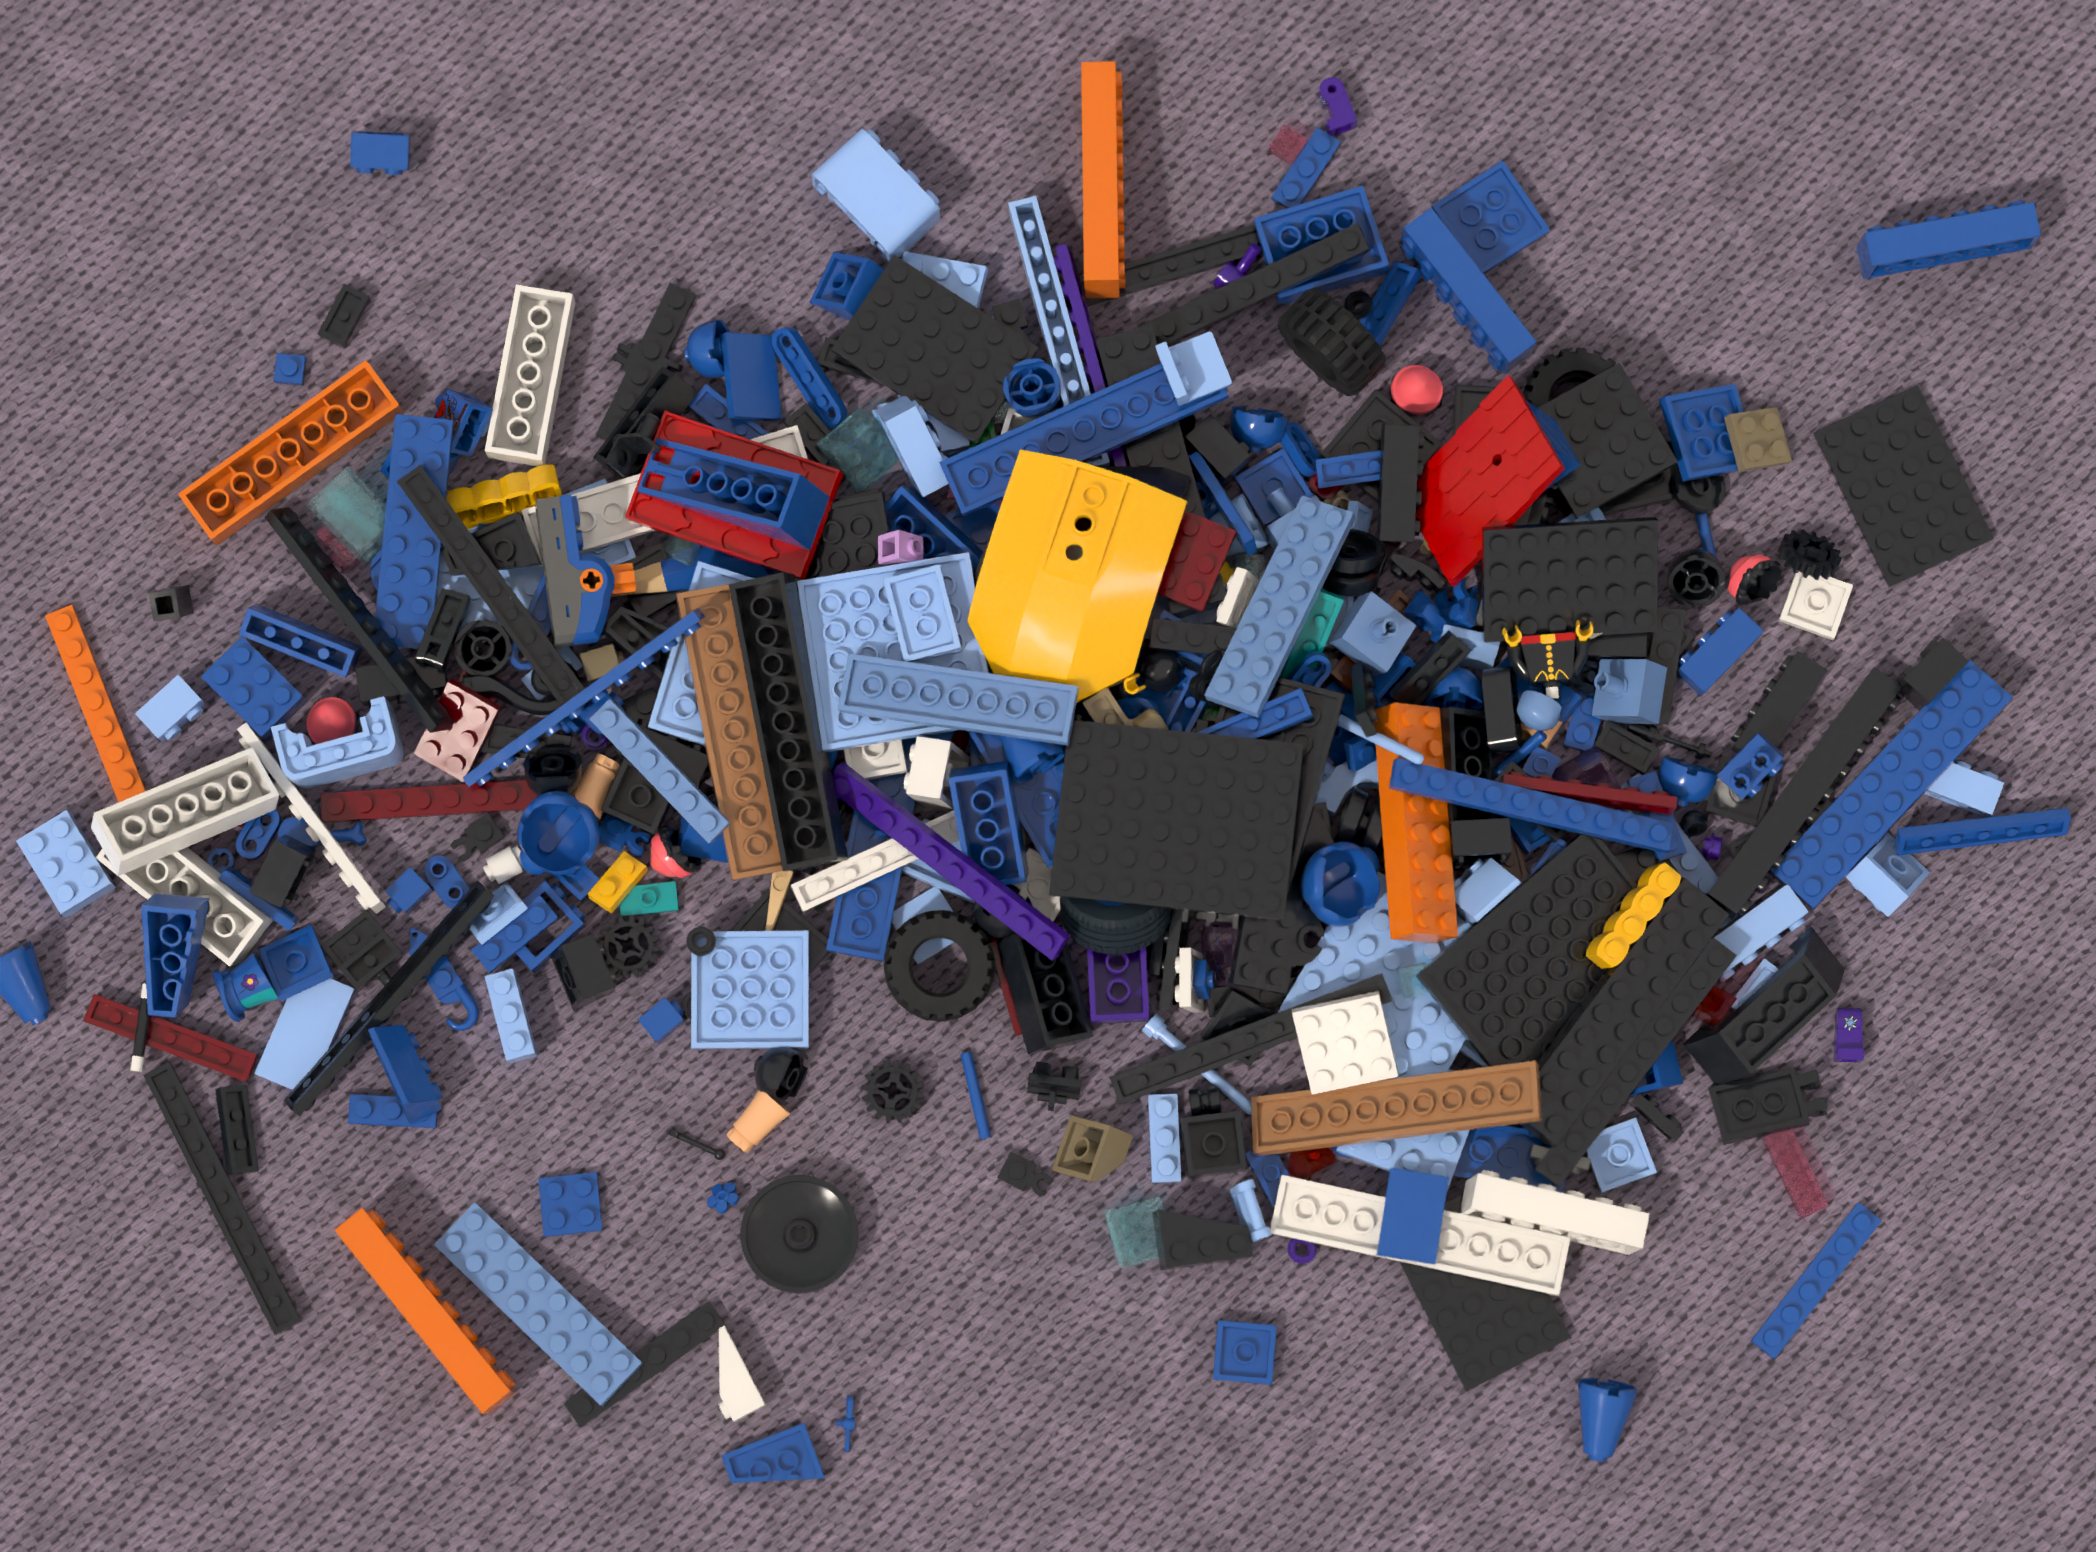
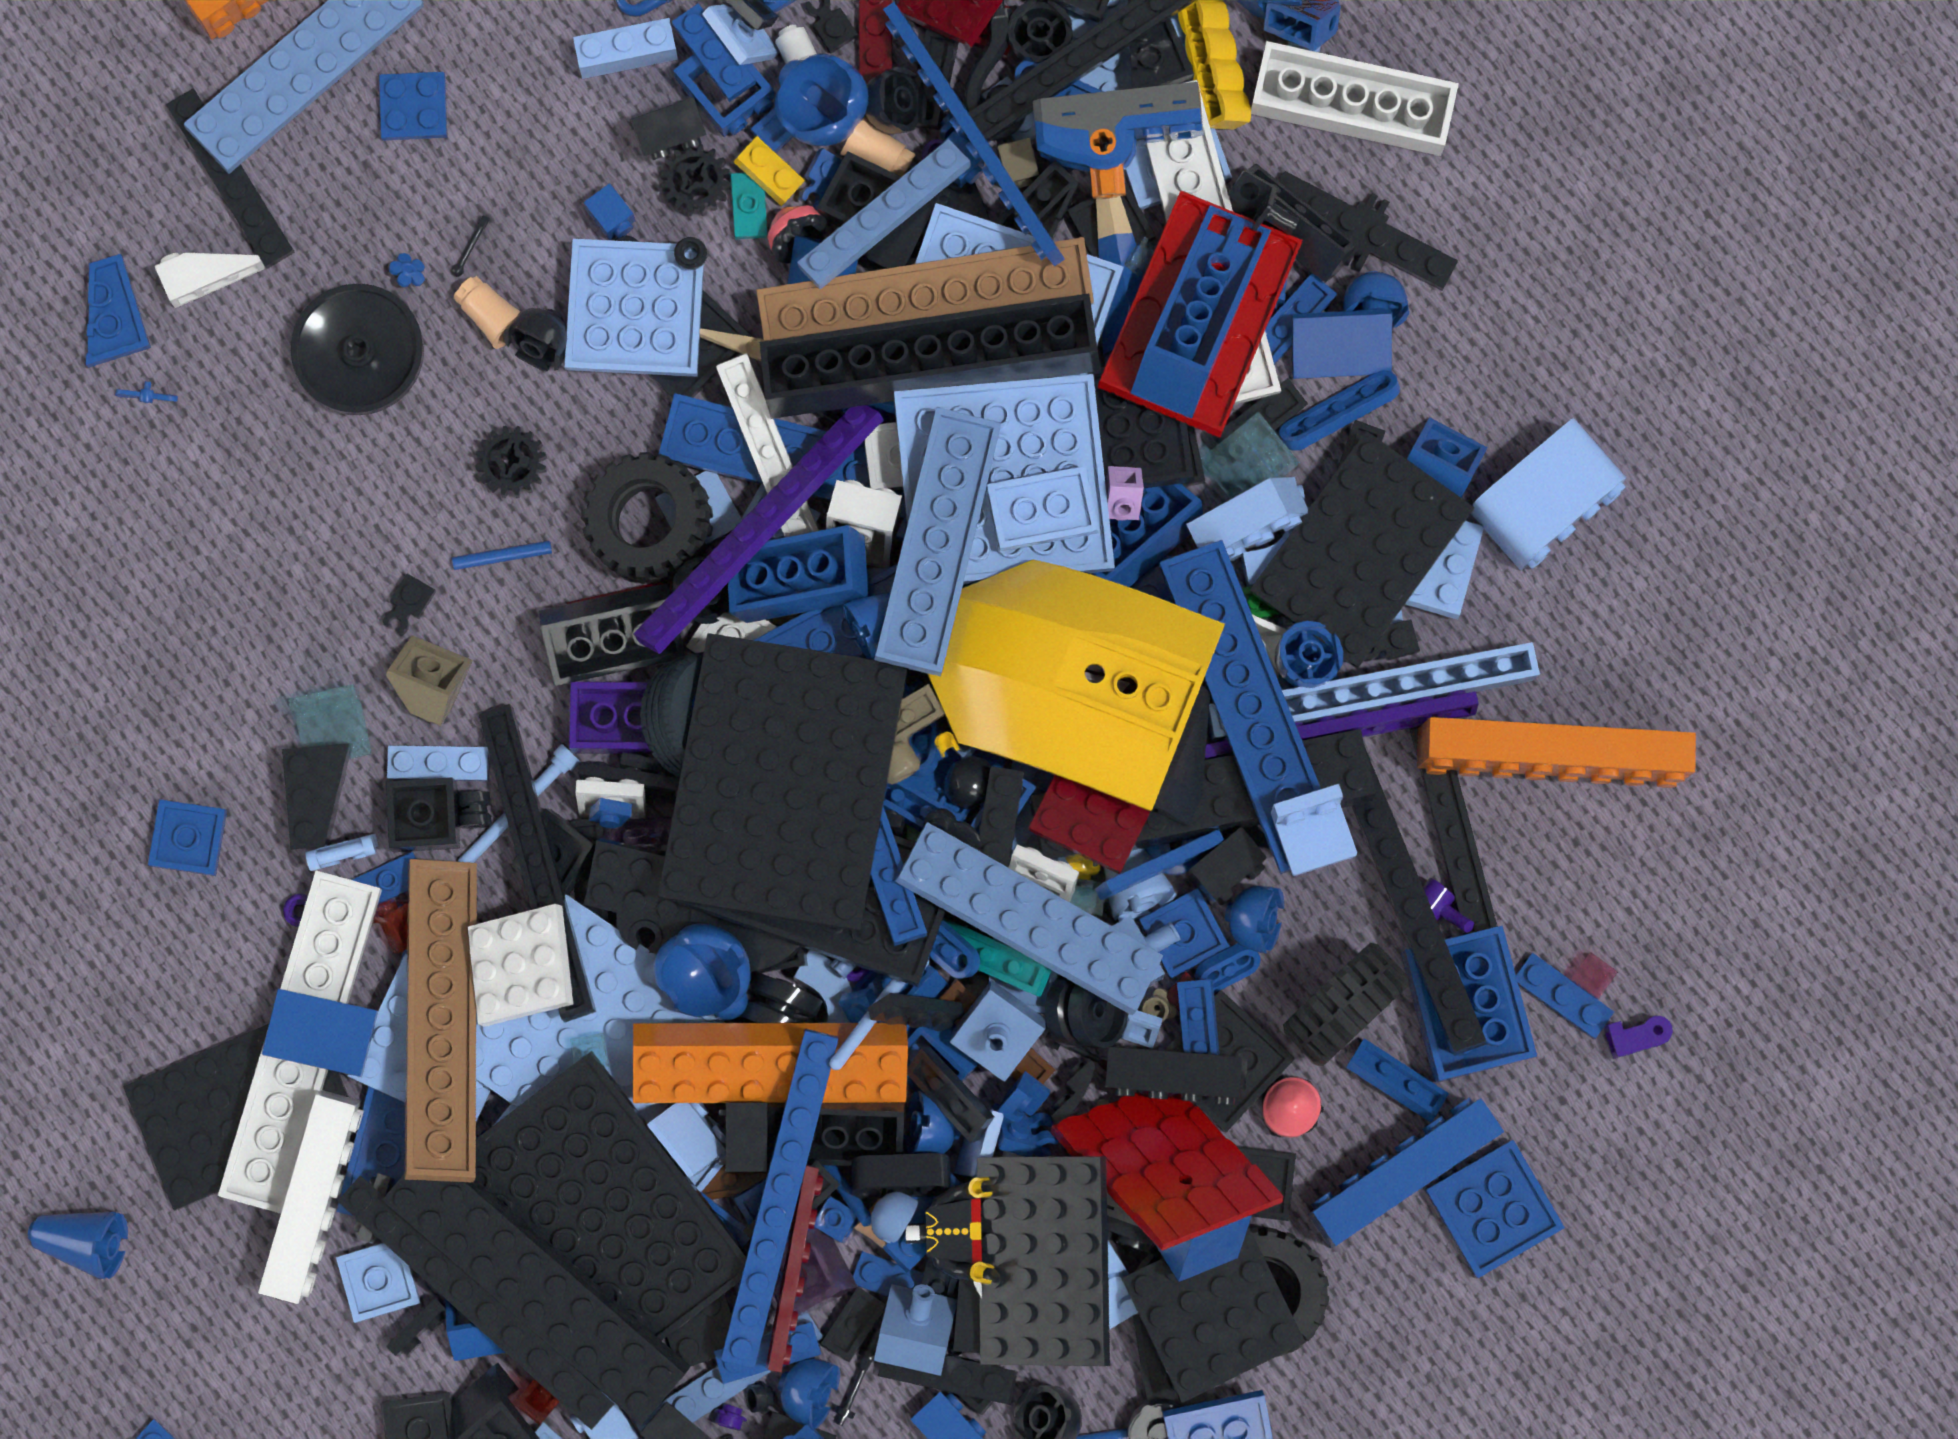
camera: 90 degrees right, 0 degrees up
(1054, 1088) = (510, 627): black hips -> none
(1355, 298) = (1402, 1039): black plate -> none
(1630, 921) = (654, 1318): yellow brick -> none

